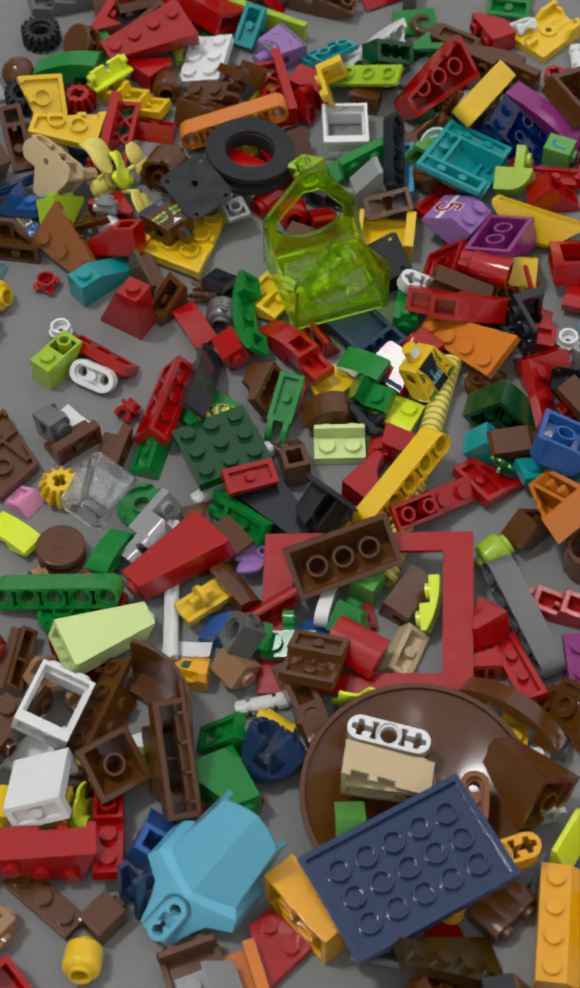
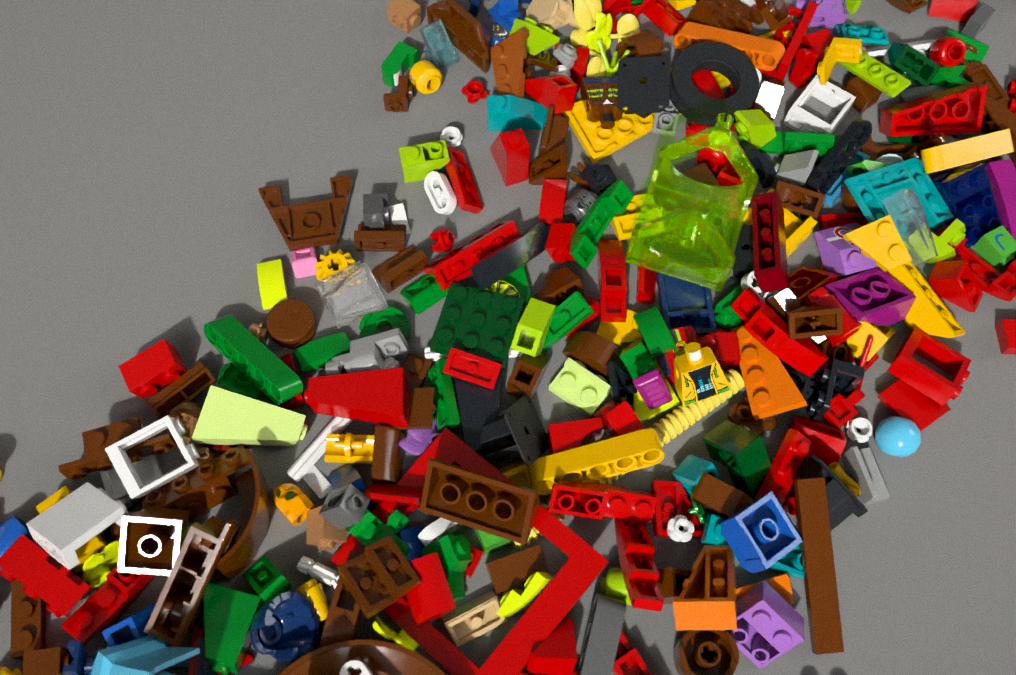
camera: 35 degrees right, 10 degrees up
(145, 190) = (611, 69): none -> lime plant
(270, 418) = (533, 327): none -> lime slope
(399, 241) = (769, 242): none -> dark red brick
(400, 402) = (653, 389): none -> magenta slope
(408, 27) = (948, 51): none -> red head
(478, 194) = (880, 243): none -> yellow wing
(480, 274) = (814, 322): none -> reddish brown slope
(489, 168) = (913, 225): none -> clear slope
(489, 523) = (637, 564): none -> red slope
(501, 485) = (674, 532): none -> white plate

